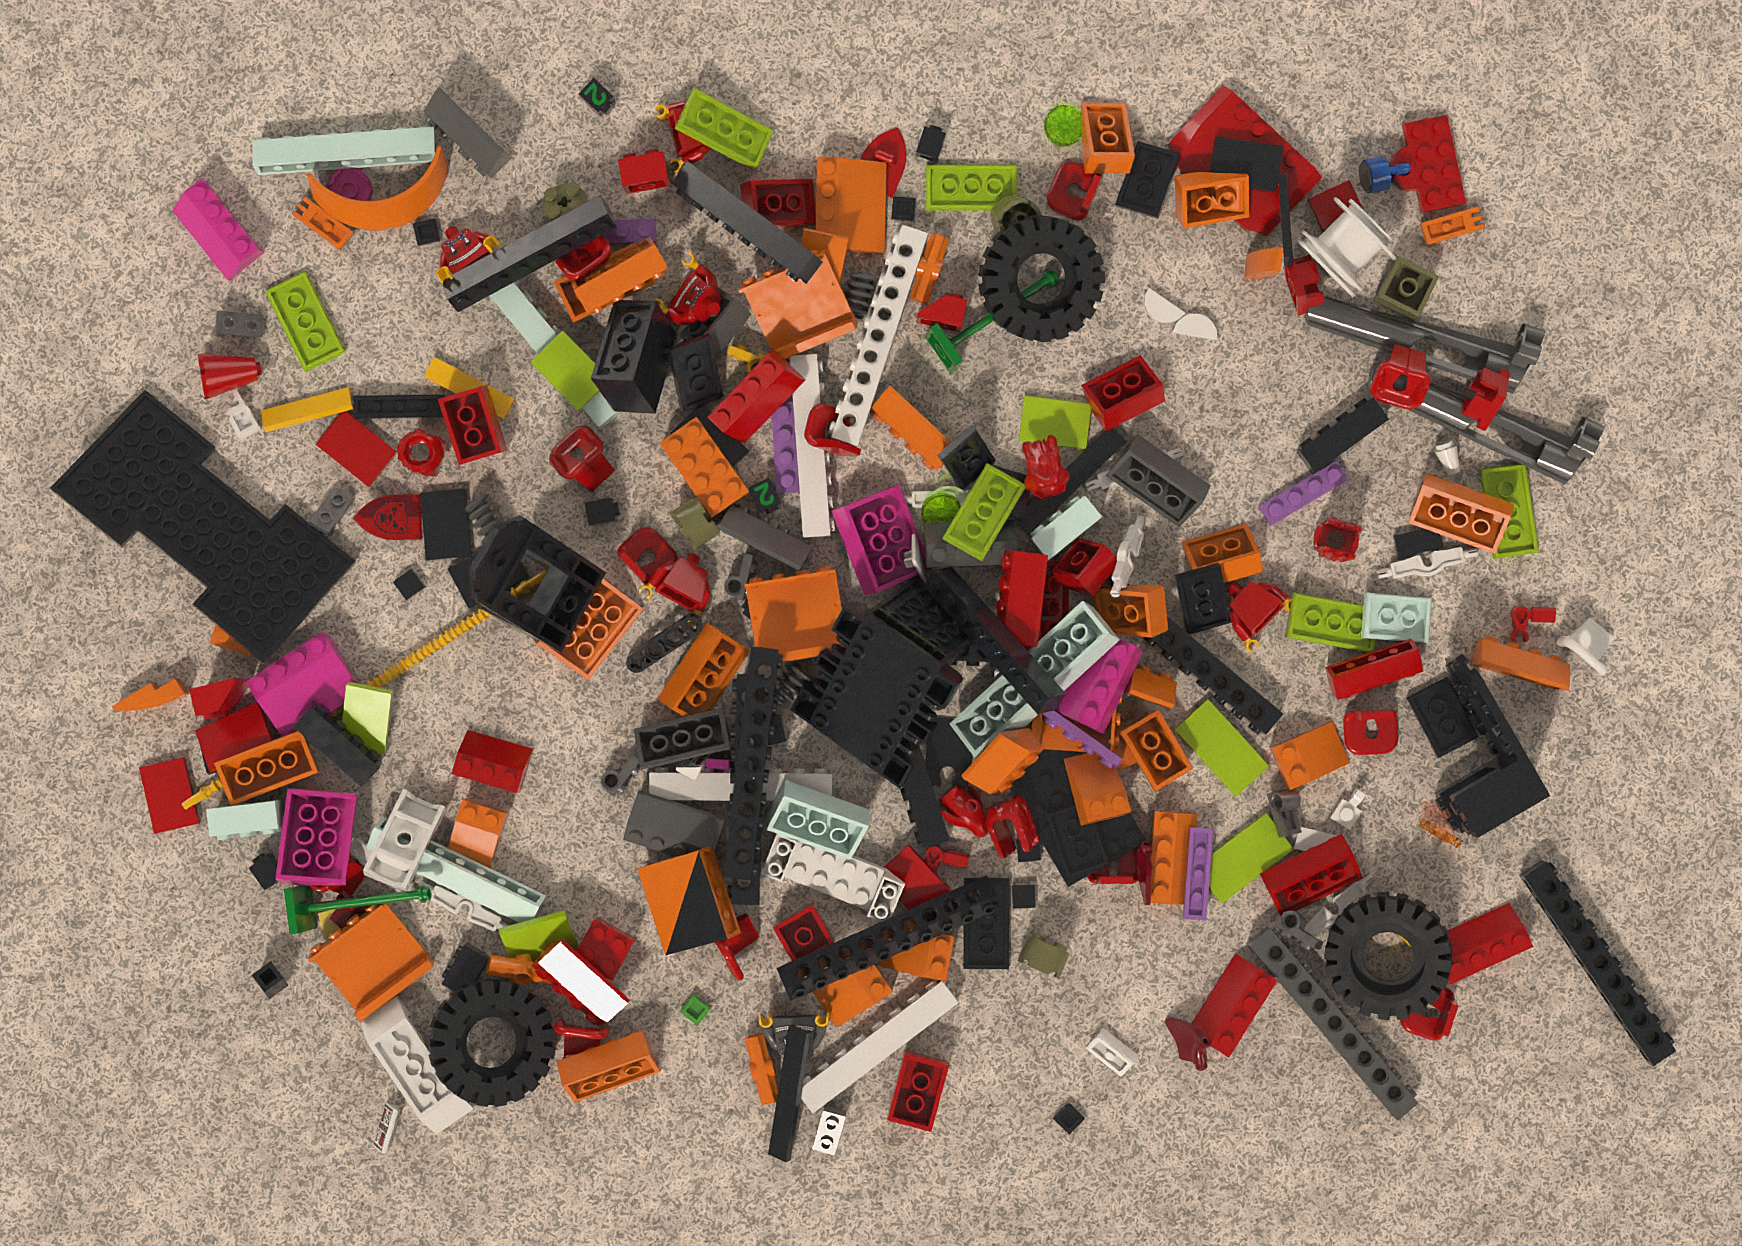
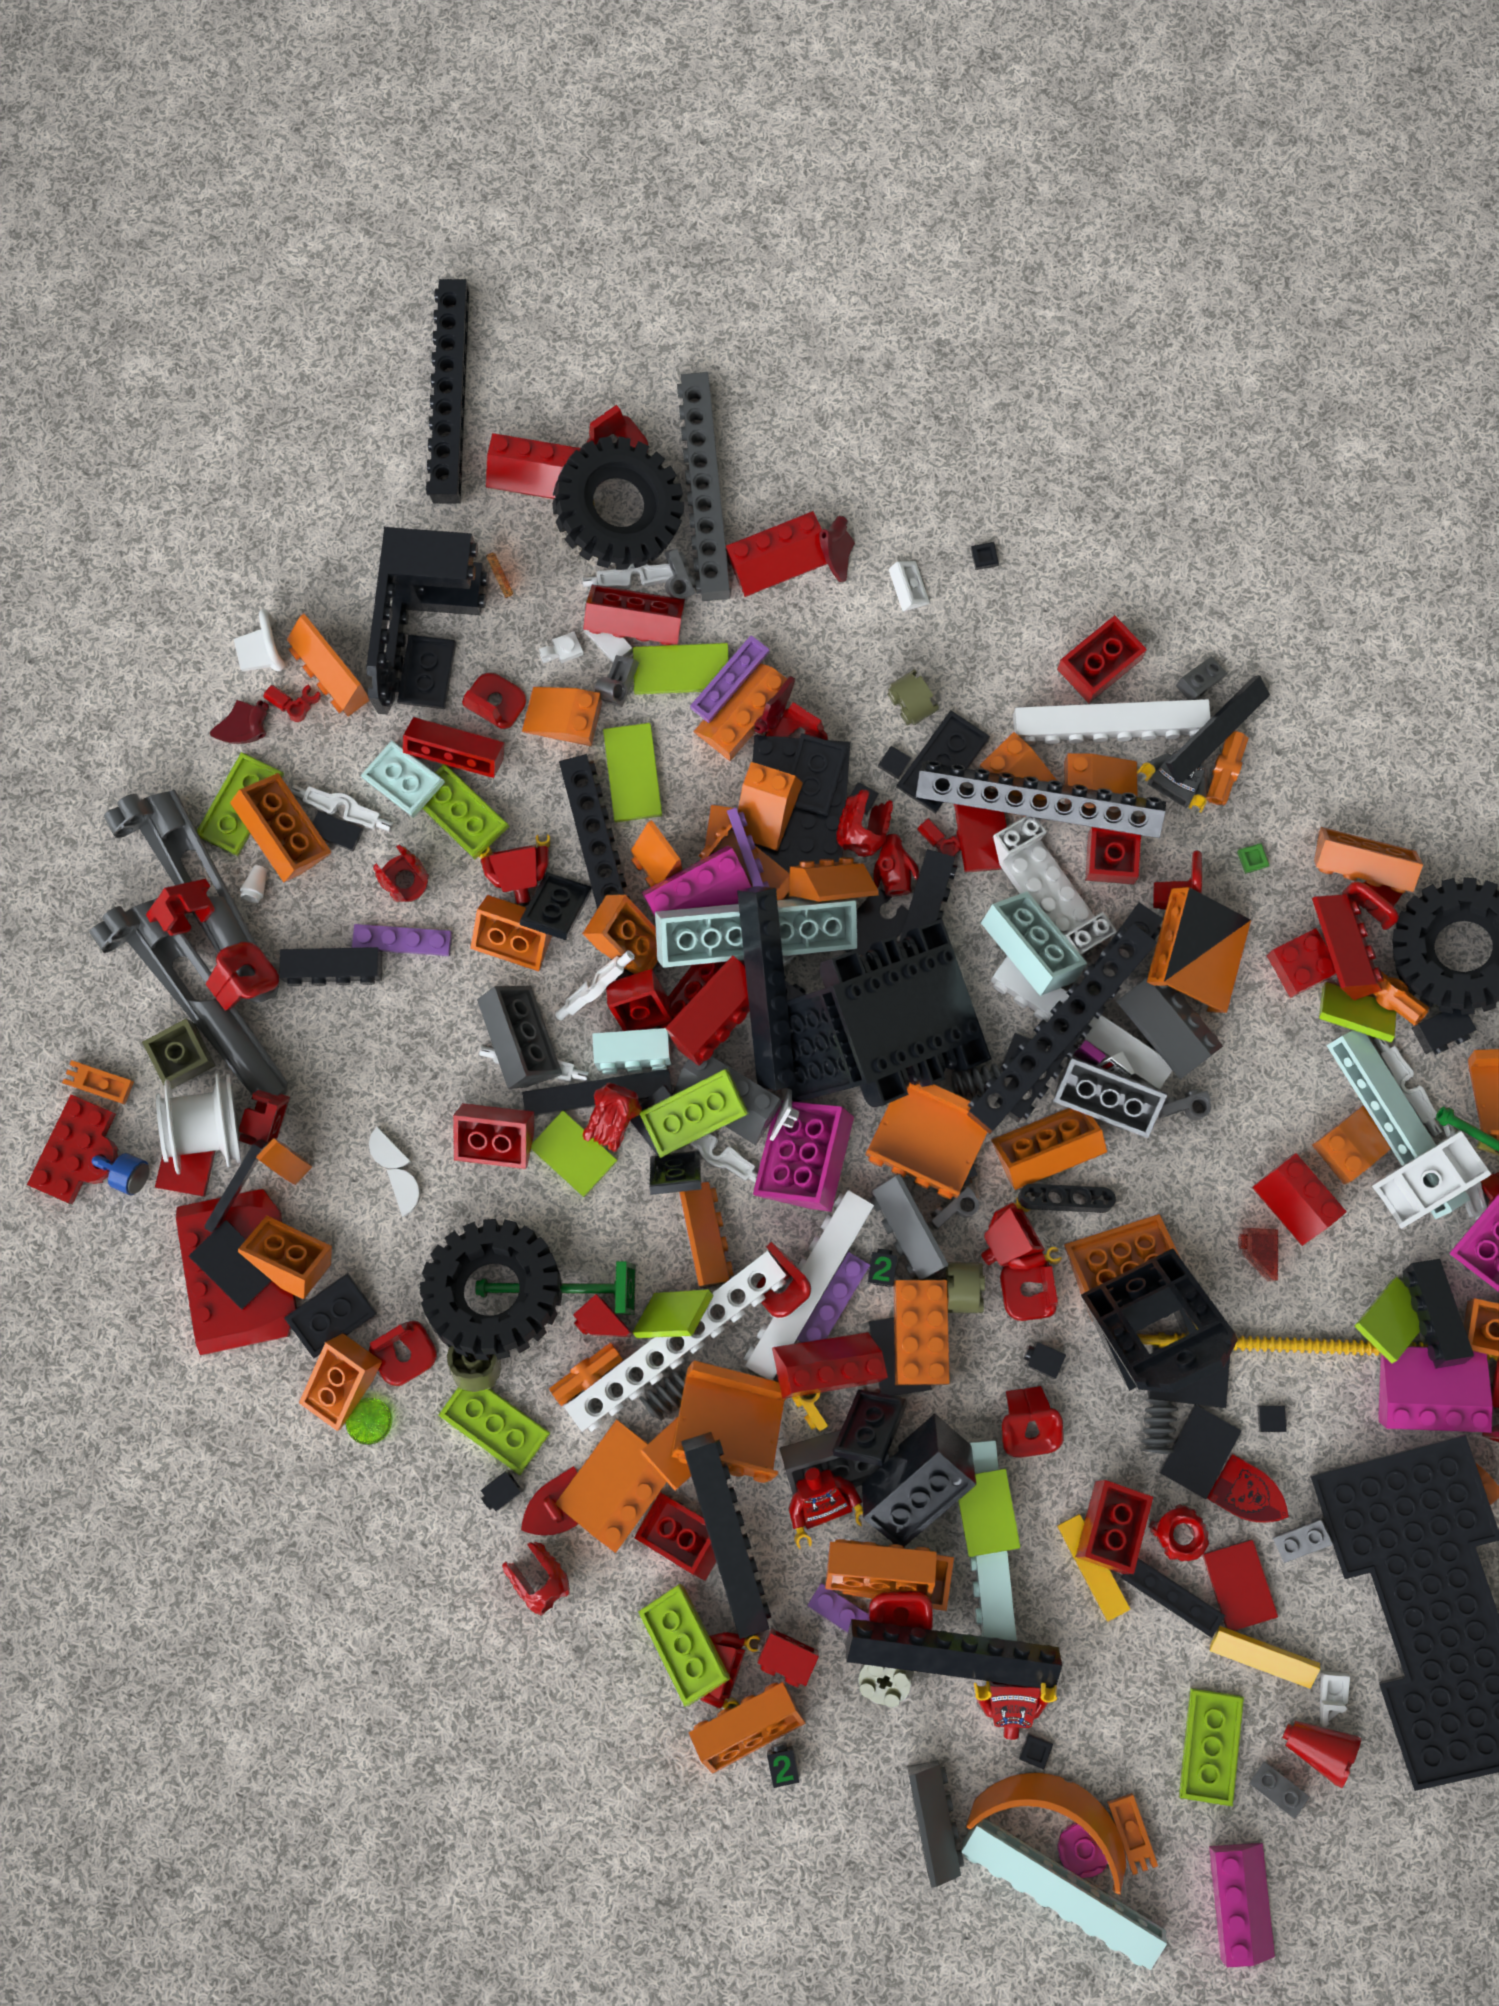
camera: 140 degrees left, 10 degrees down
(495, 703) = (1261, 1250): none -> clear red slope
(641, 104) = (746, 1727): none -> orange slope
(843, 103) = (555, 1587): none -> red piece
(895, 353) = (673, 1314): none -> lime tile
(903, 208) = (570, 1448): black tile -> none
(940, 508) = (730, 1146): clear neon green wheel -> none
(1156, 750) = (691, 804): orange slope -> none
(1555, 575) = (242, 724): none -> dark red arm

